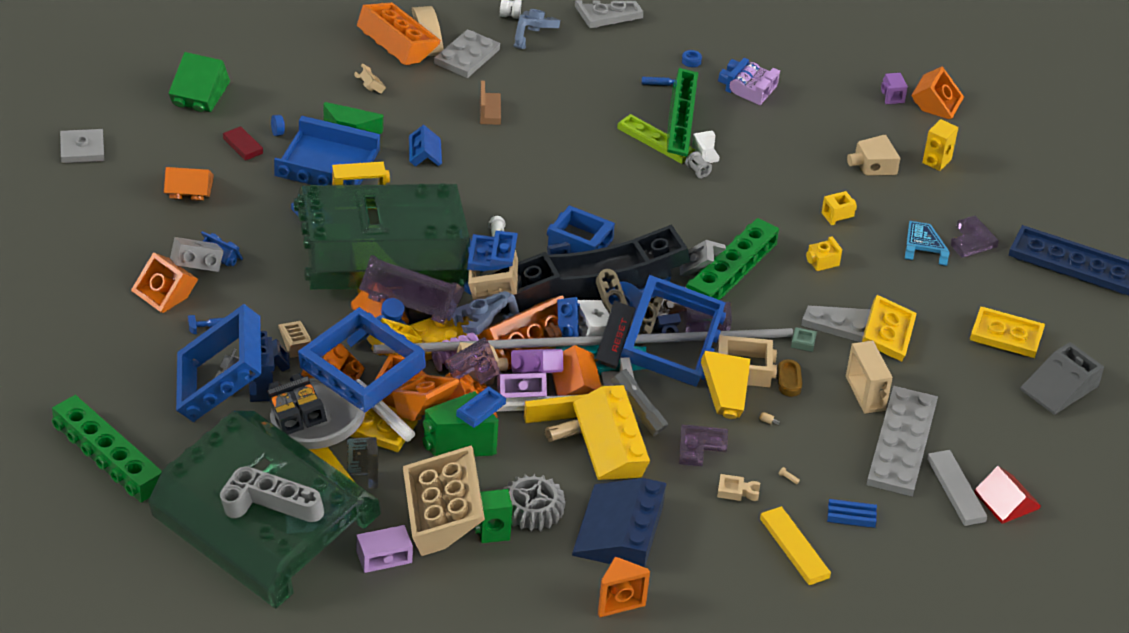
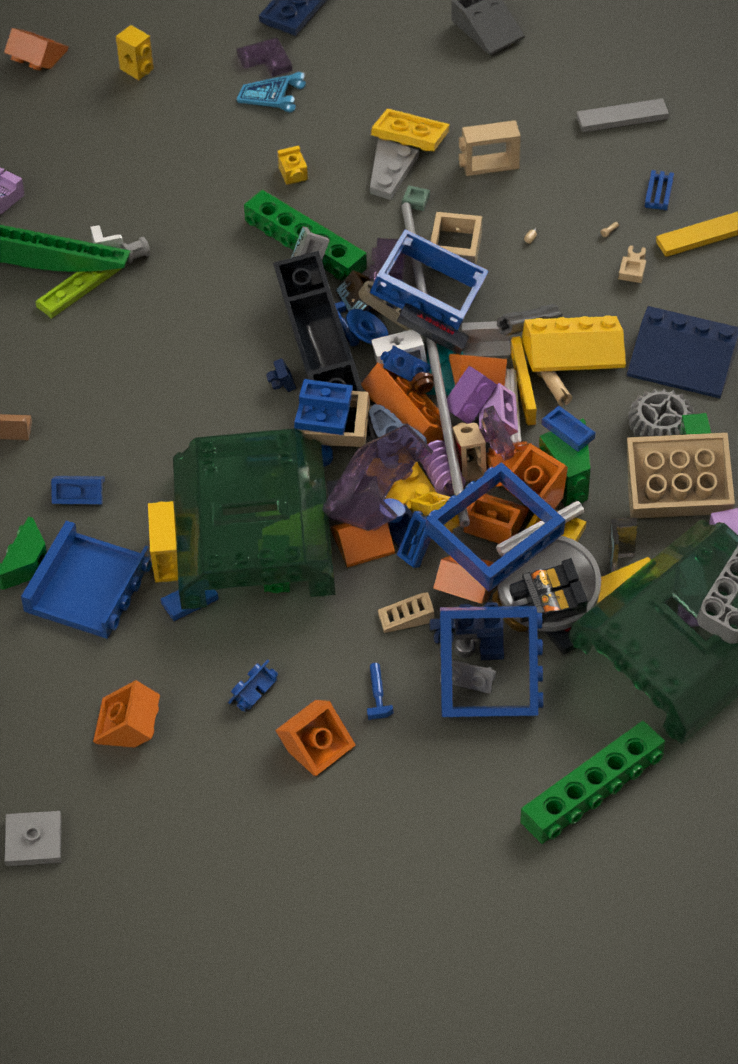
camera: 80 degrees left, 10 degrees up
(196, 254) = (279, 697): light grey brick -> none
(243, 143) = (46, 667): dark red tile -> none
(277, 125) = (21, 628): blue tile -> none
(496, 223) = (231, 427): white pin -> none
(583, 220) = (256, 337): blue window -> none
(603, 287) = (358, 327): dark tan beam -> none
(700, 438) = (569, 290): clear purple plate -> none
(727, 382) = (503, 250): yellow slope -> none
(789, 378) = (486, 211): pearl gold tile -> none
(838, 207) = (220, 146): yellow brick -> none
(875, 156) = (136, 108): tan torso -> none
(894, 88) = (19, 80): medium lavender brick -> none
(902, 441) = (568, 145): light grey plate -> none
(1005, 496) = (636, 83): slope -> none
(1007, 332) = (413, 50): yellow plate -> none

